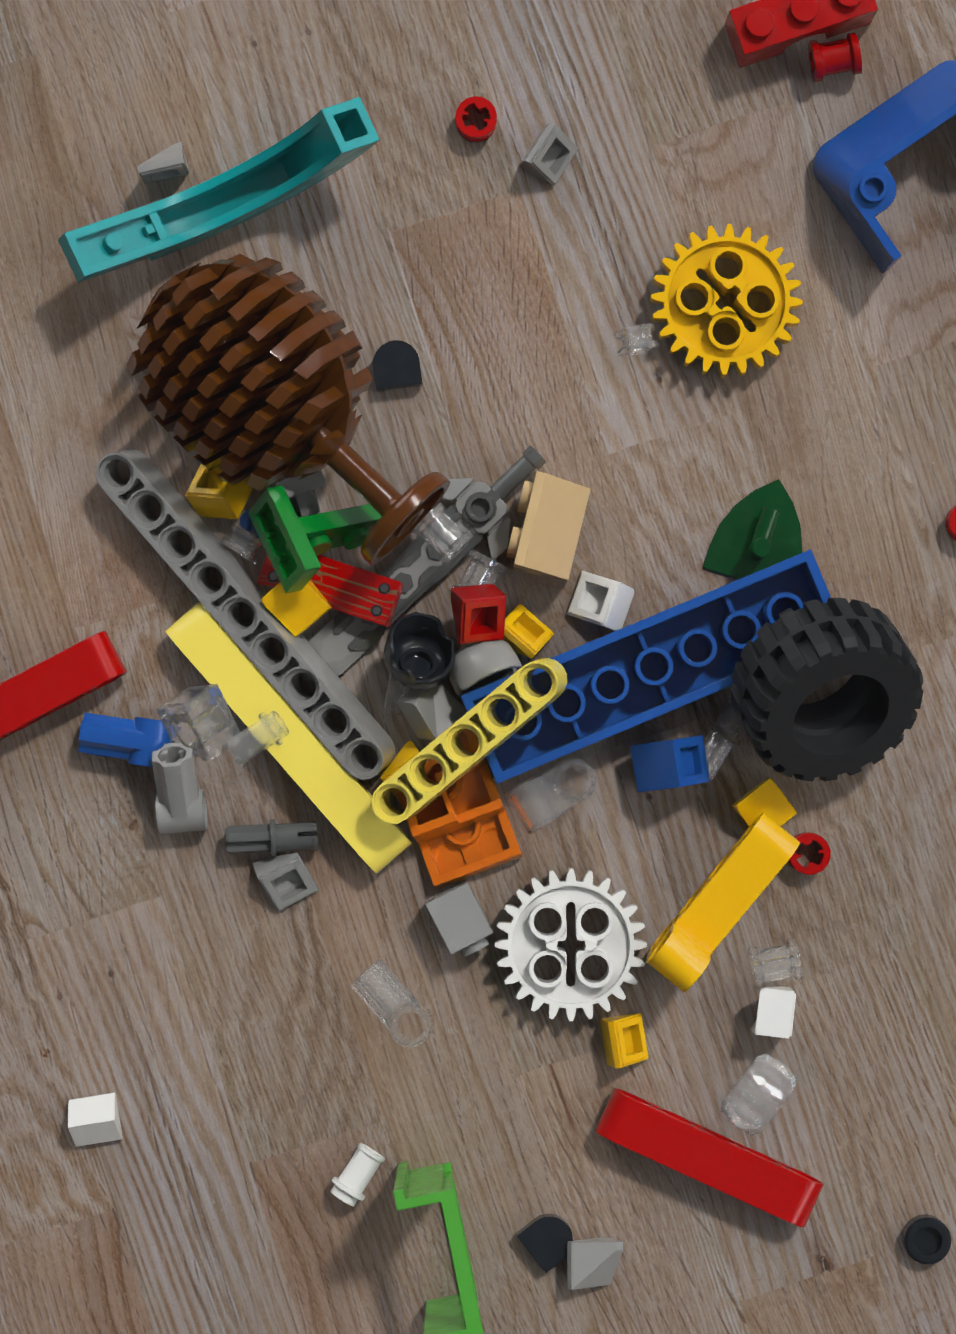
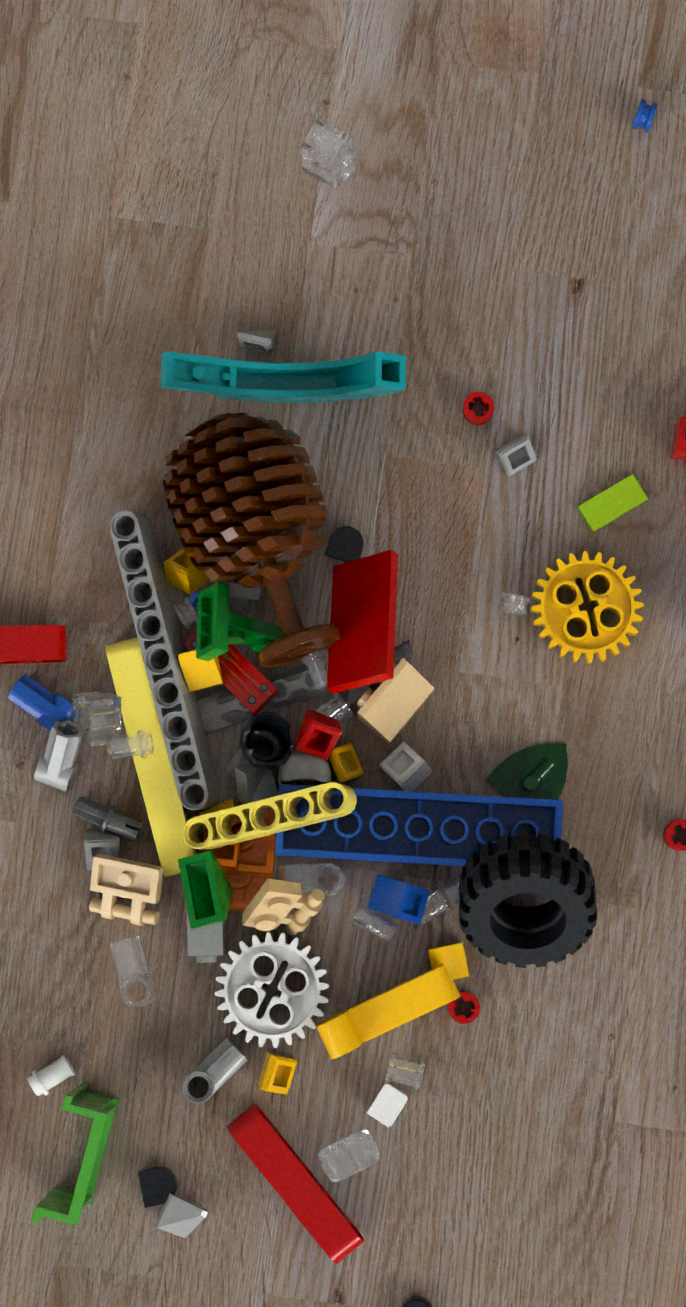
camera: 30 degrees right, 5 degrees down
(334, 899) = (128, 880): none -> tan plate
(433, 865) = (205, 889): none -> green slope
(467, 443) = (366, 617): none -> red tile
(535, 836) = (282, 903): none -> tan plate
(551, 1071) = (215, 1069): none -> light grey piece
(655, 806) = (375, 924): none -> clear pin
(695, 157) = (612, 503): none -> lime piece

